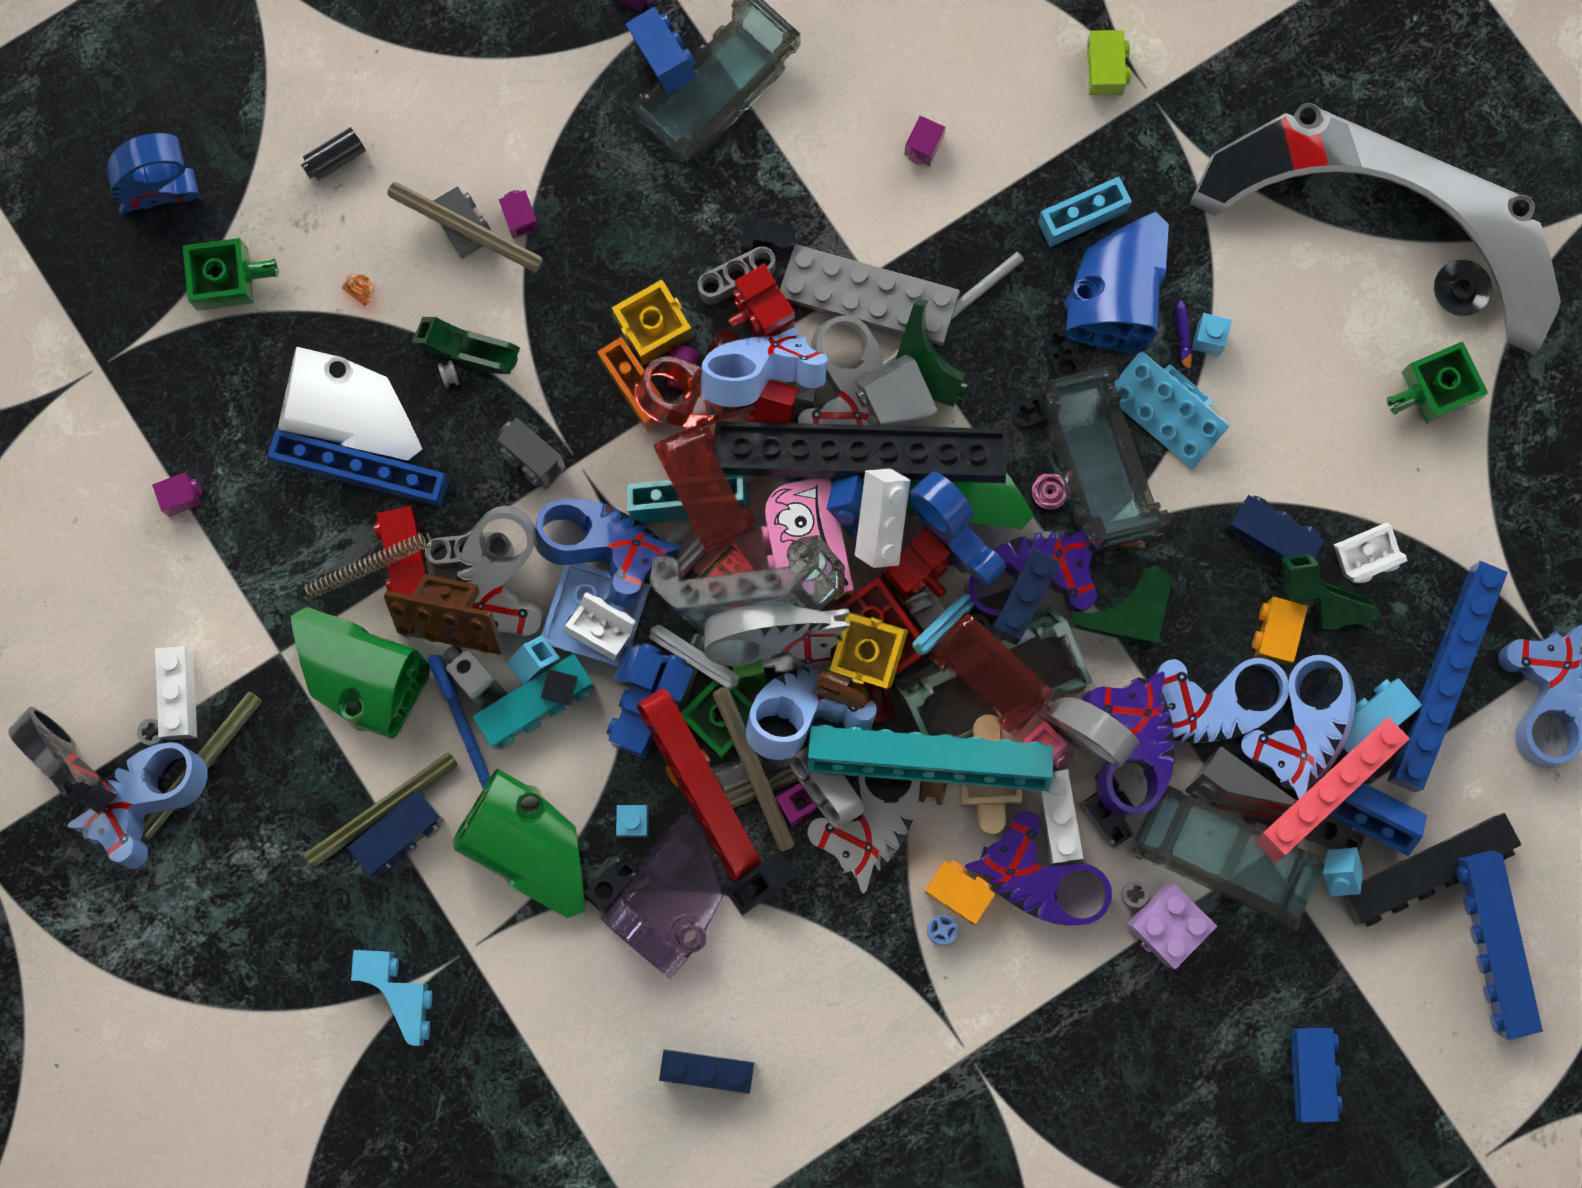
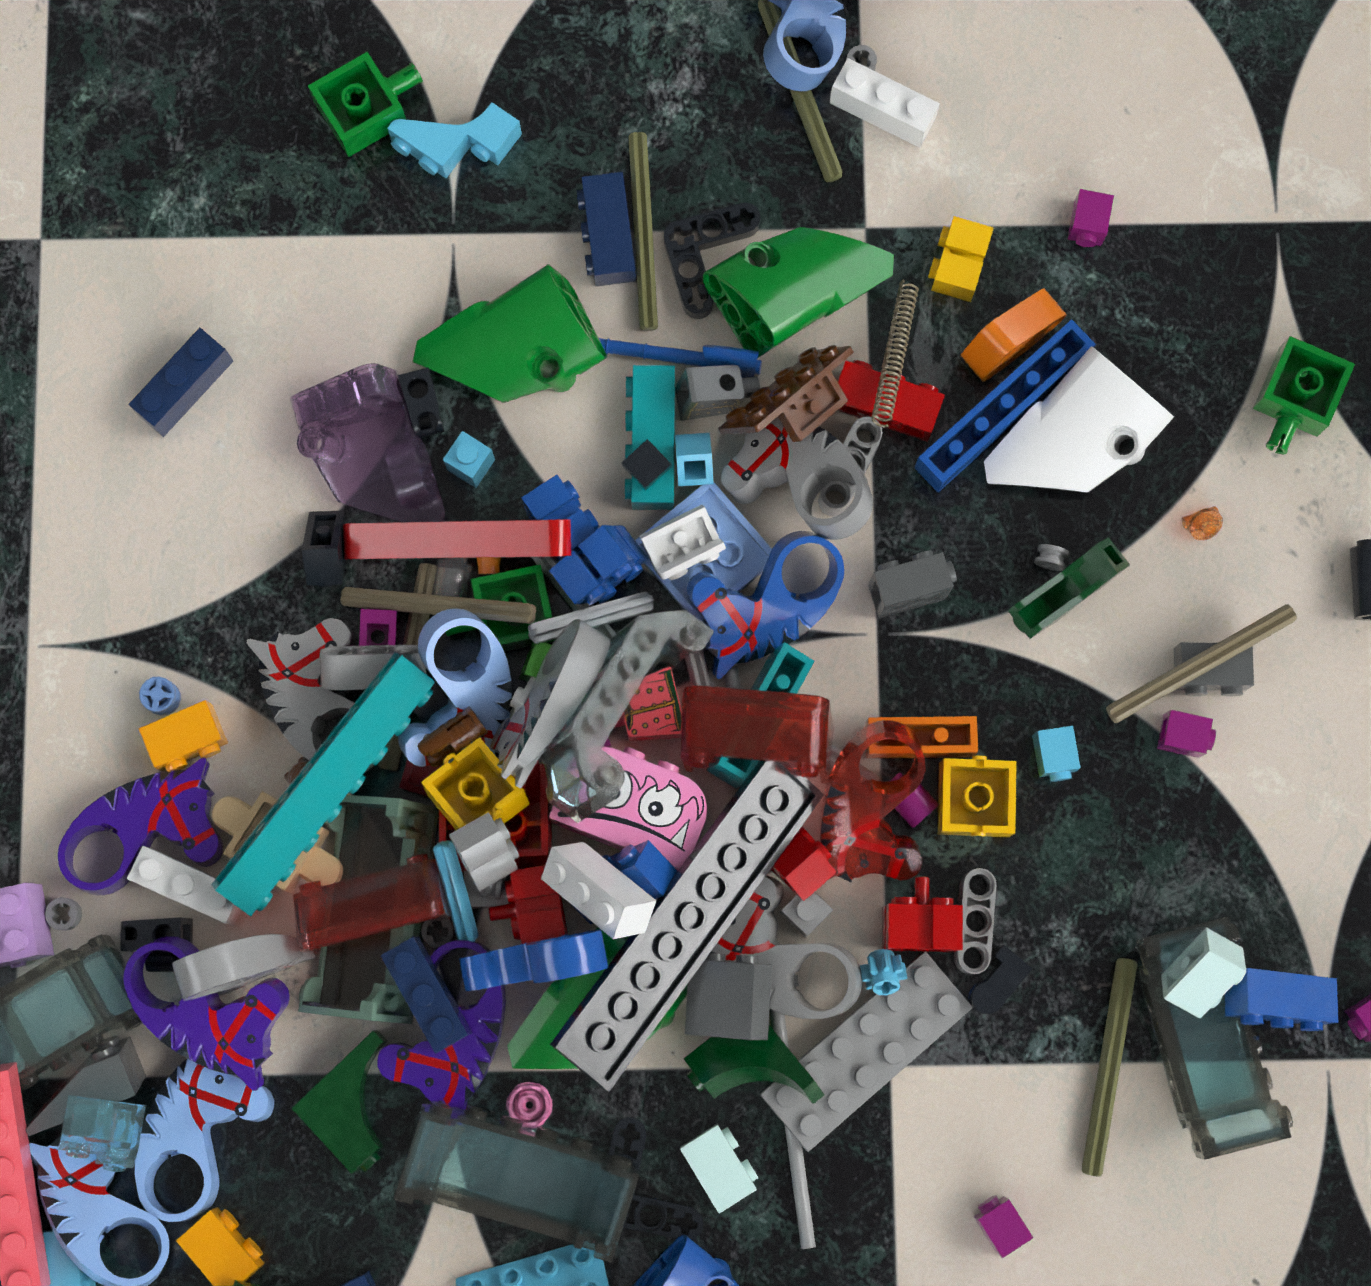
camera: 120 degrees right, 0 degrees up
(250, 570) = (961, 259): none -> yellow piece
(301, 494) = (1012, 334): none -> orange beam
(376, 763) = (691, 250): none -> black beam
(392, 1084) = (364, 85): none -> green brick
(586, 290) = (1056, 753): none -> medium azure brick
(678, 103) = (1203, 973): none -> light aqua brick
(740, 369) = (860, 872): light blue animal -> none
(776, 135) = (1109, 1067): none -> olive axle
(810, 311) = (883, 972): none -> medium azure gear
(905, 611) = (485, 850): none -> light grey brick
(1008, 342) = (718, 1167): none -> light aqua brick
(1061, 750) = (271, 920): bright pink bracket -> none
(1258, 747) = (102, 1129): none -> clear light blue brick

